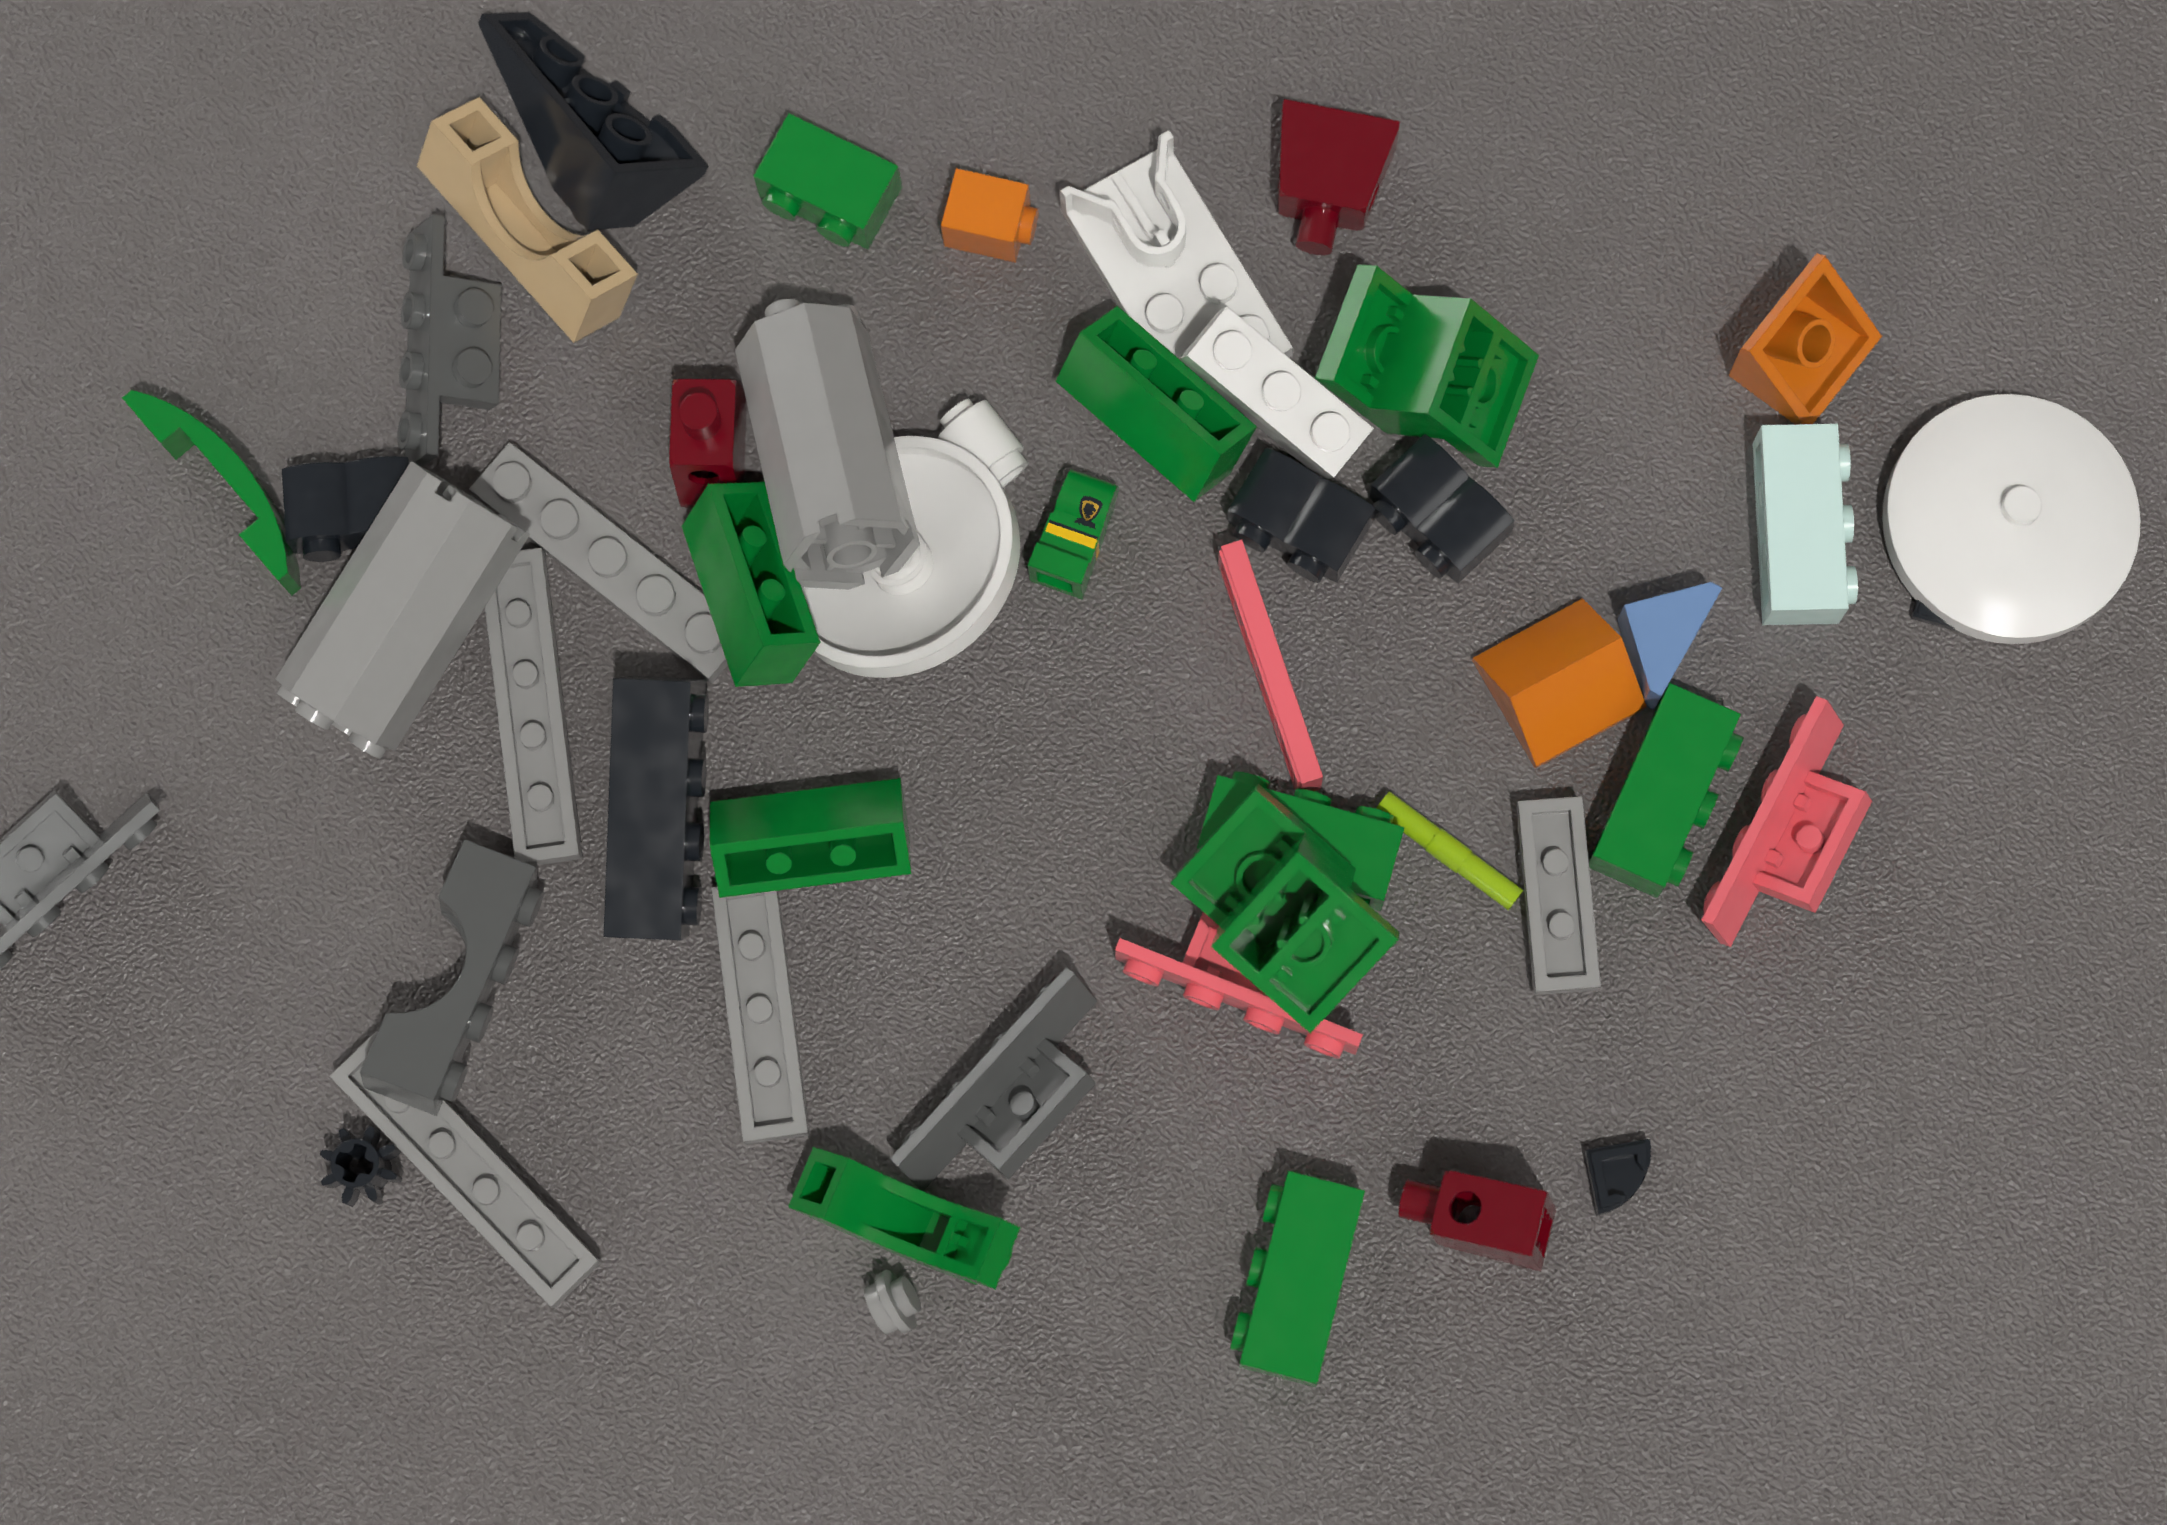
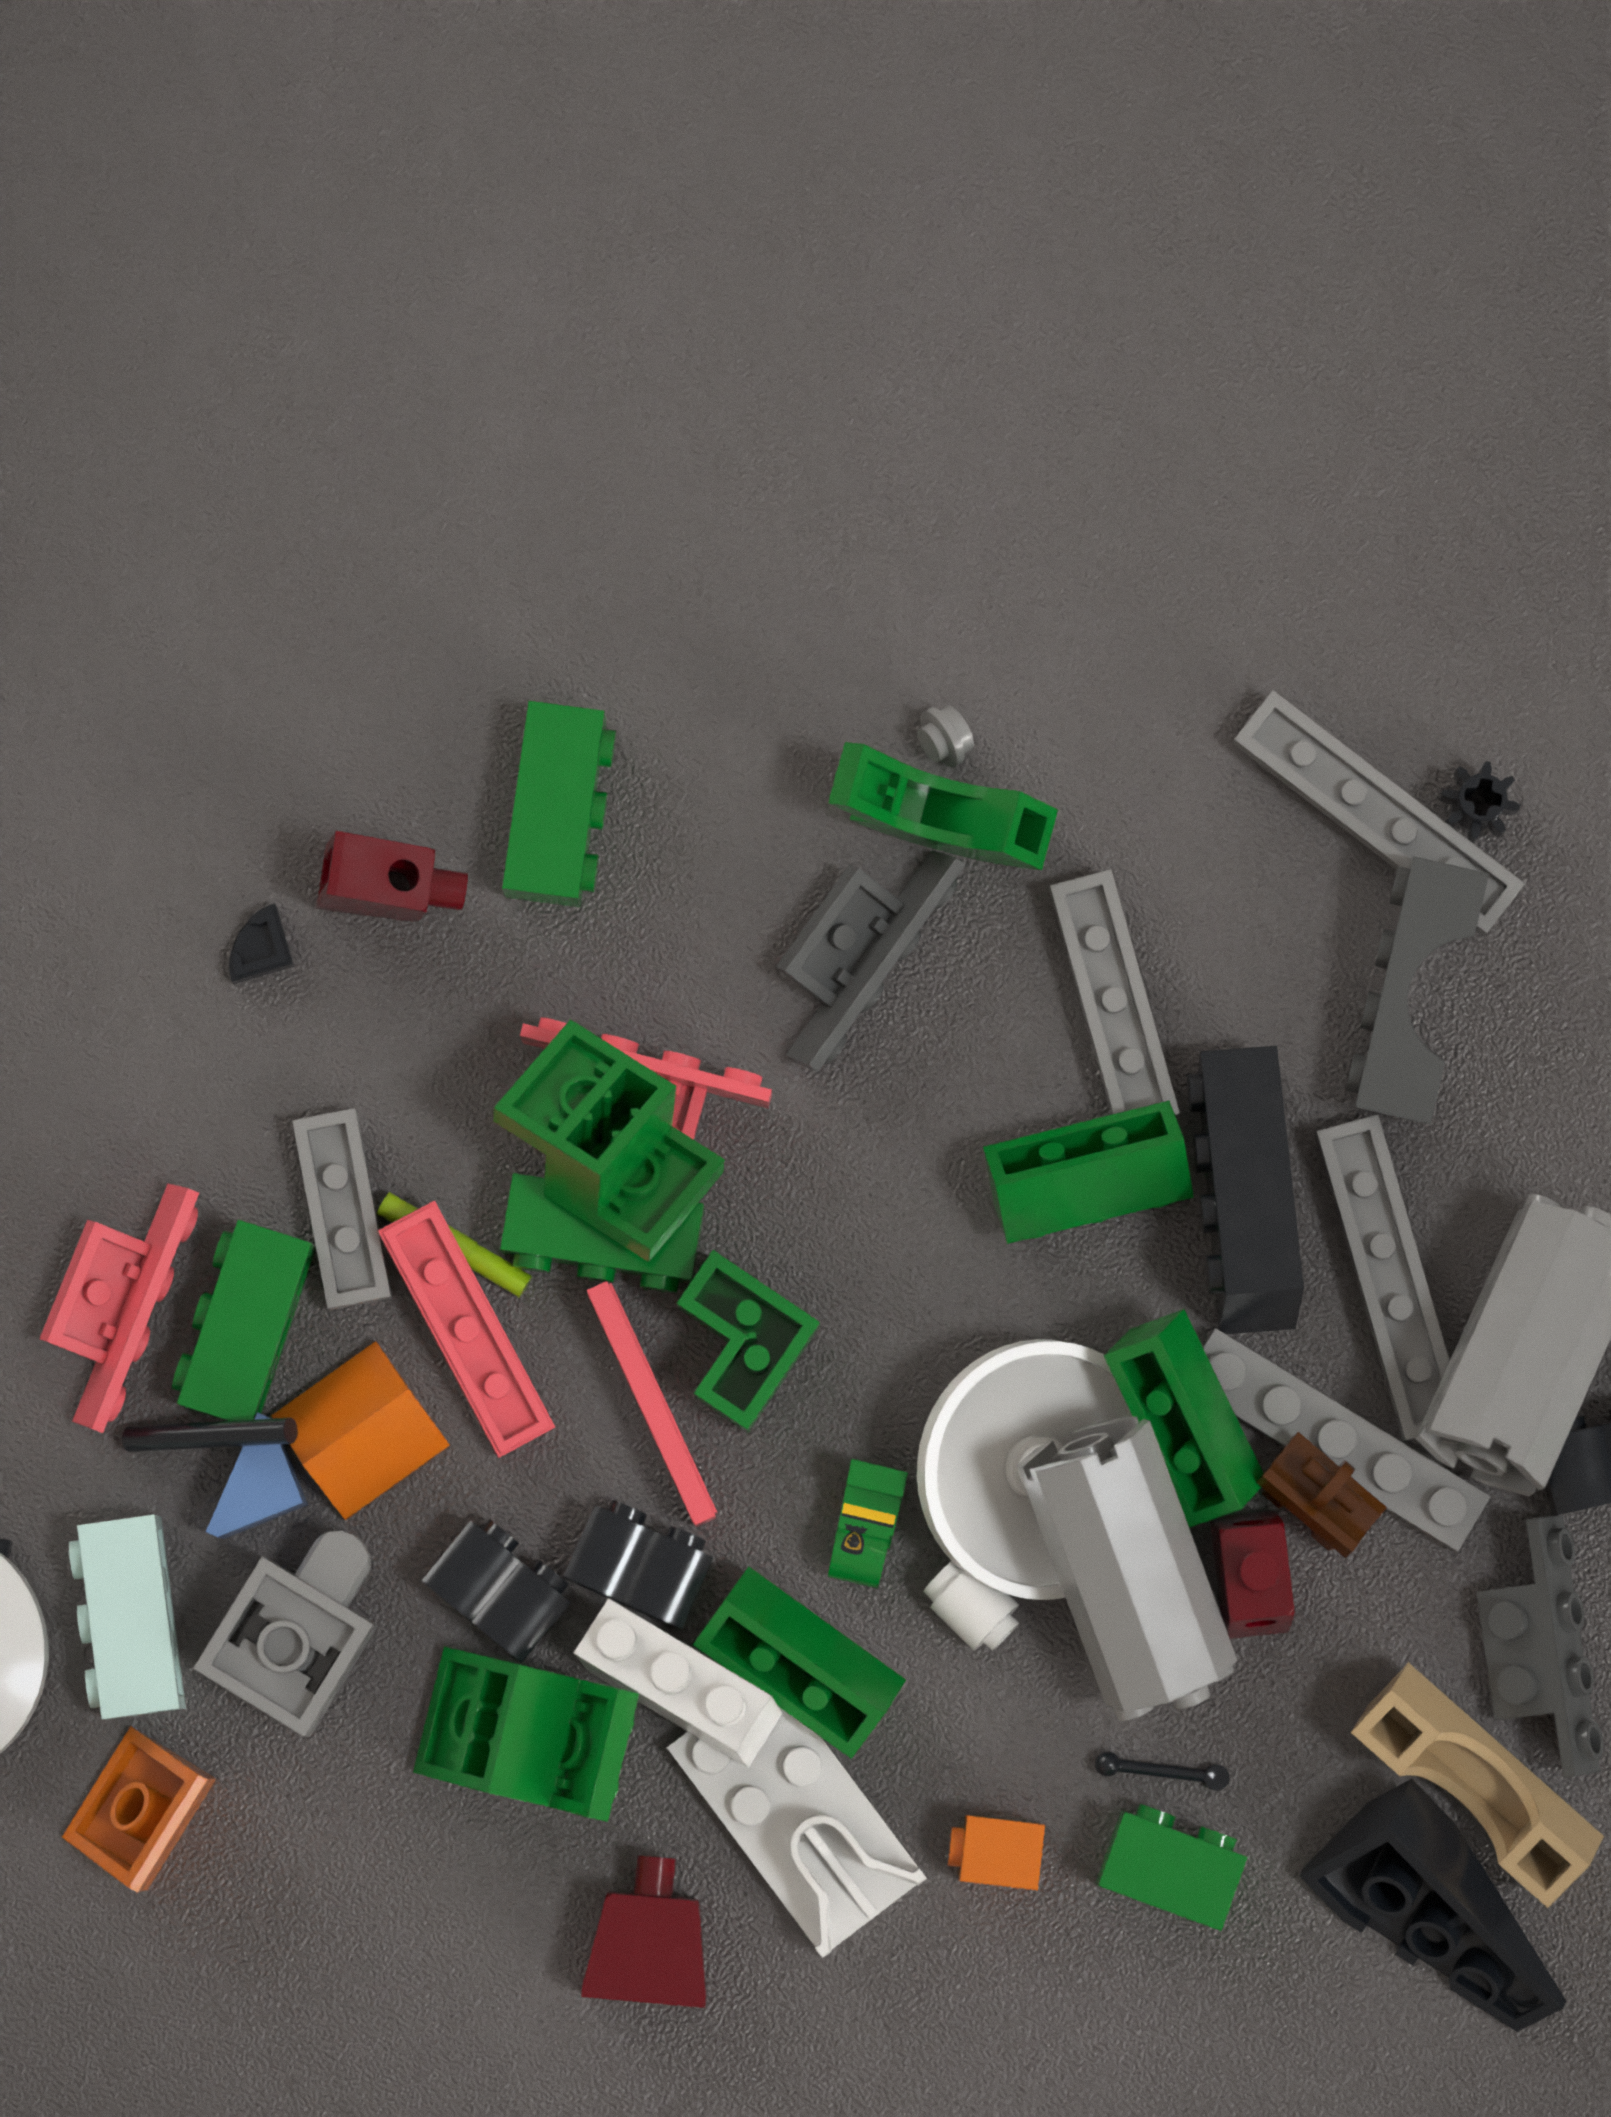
camera: 165 degrees right, 5 degrees up
(630, 503) = (1321, 1495): none -> reddish brown hips
(775, 269) = (1214, 1776): none -> black hinge
(1156, 718) = (762, 1336): none -> green brick
(1446, 763) = (466, 1329): none -> coral tile
(1637, 495) = (294, 1633): none -> light grey brick
(1709, 681) = (210, 1434): none -> black bar

